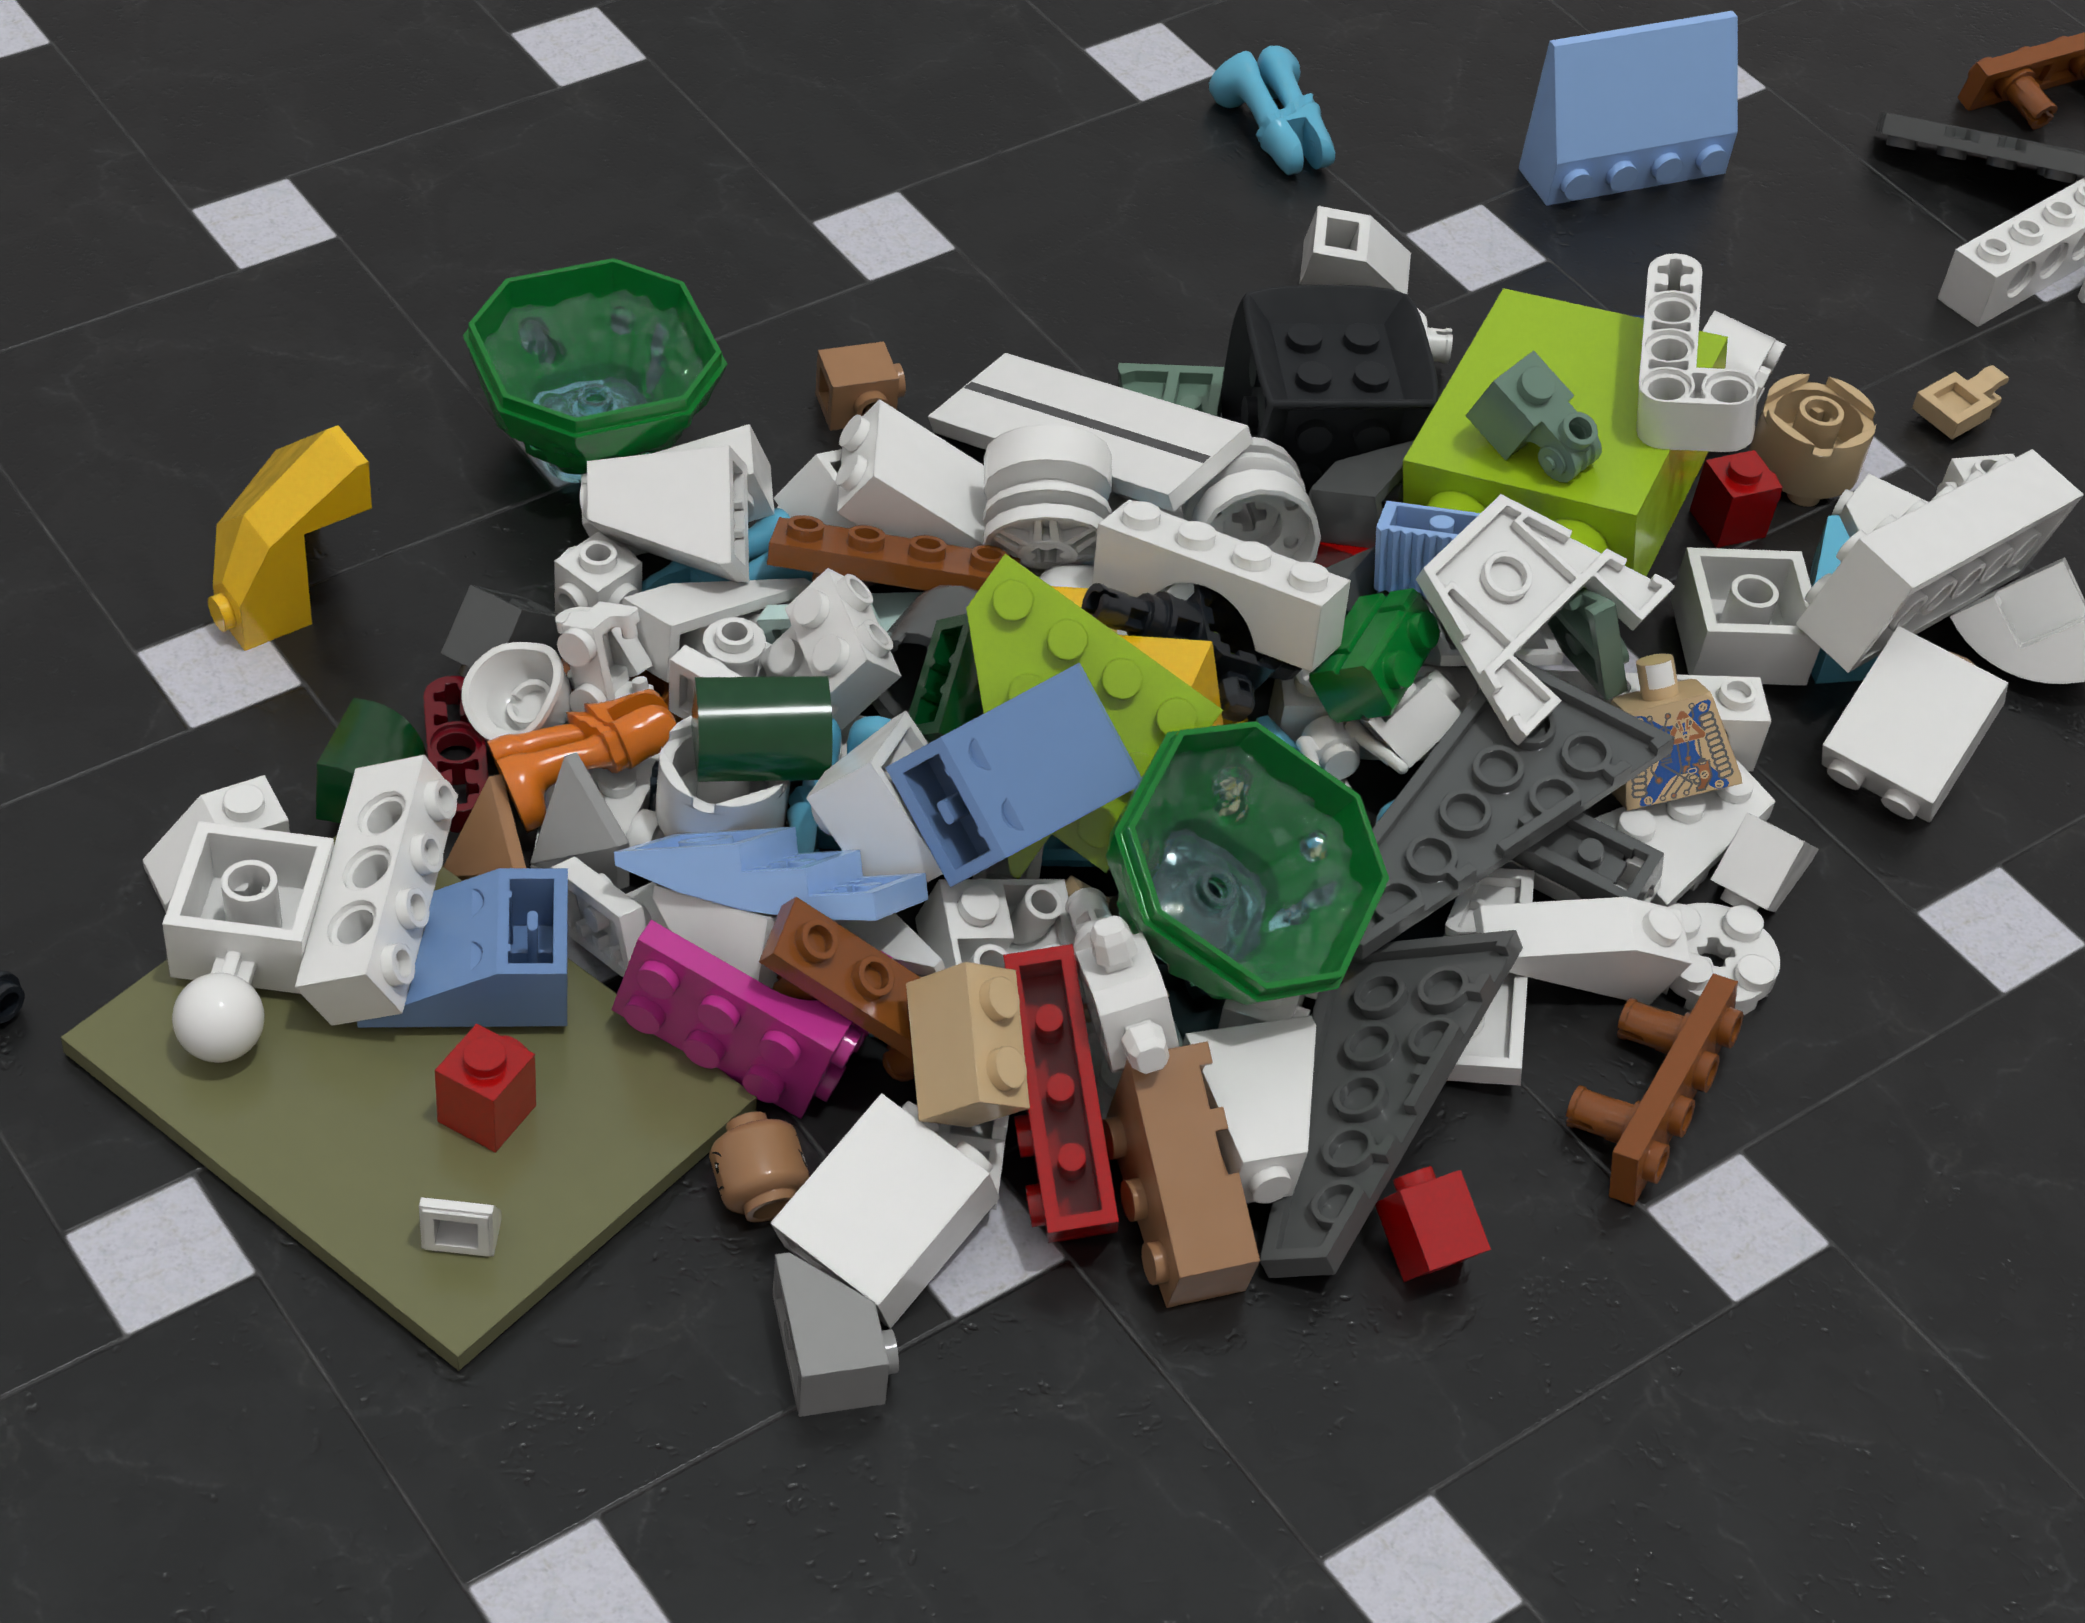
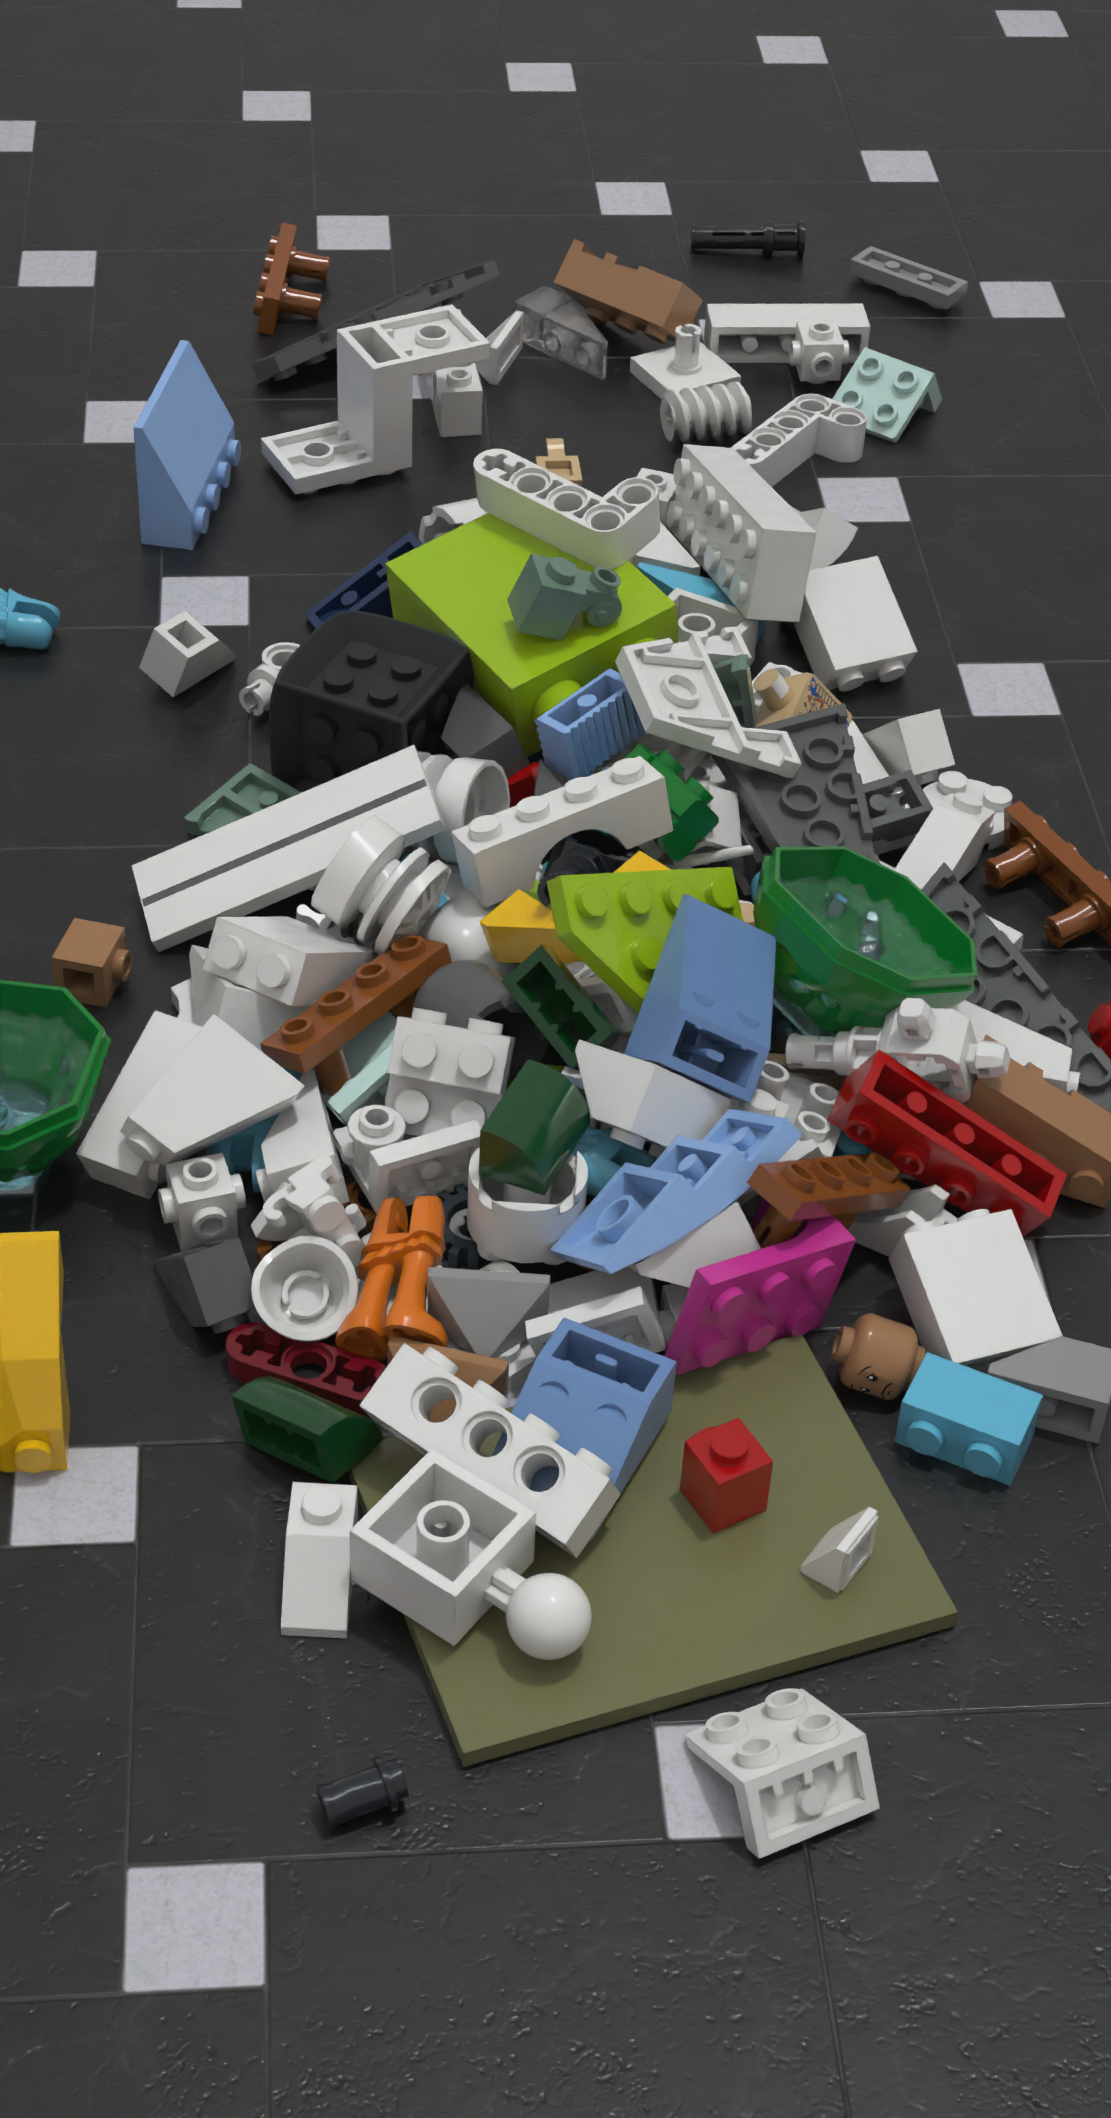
camera: 55 degrees left, 5 degrees down
(166, 1279) = (791, 1768): none -> white bracket
(725, 1275) = (968, 1418): none -> medium azure brick
(967, 1045) = (917, 1154): tan brick -> none
(1884, 166) = (374, 398): none -> white bracket

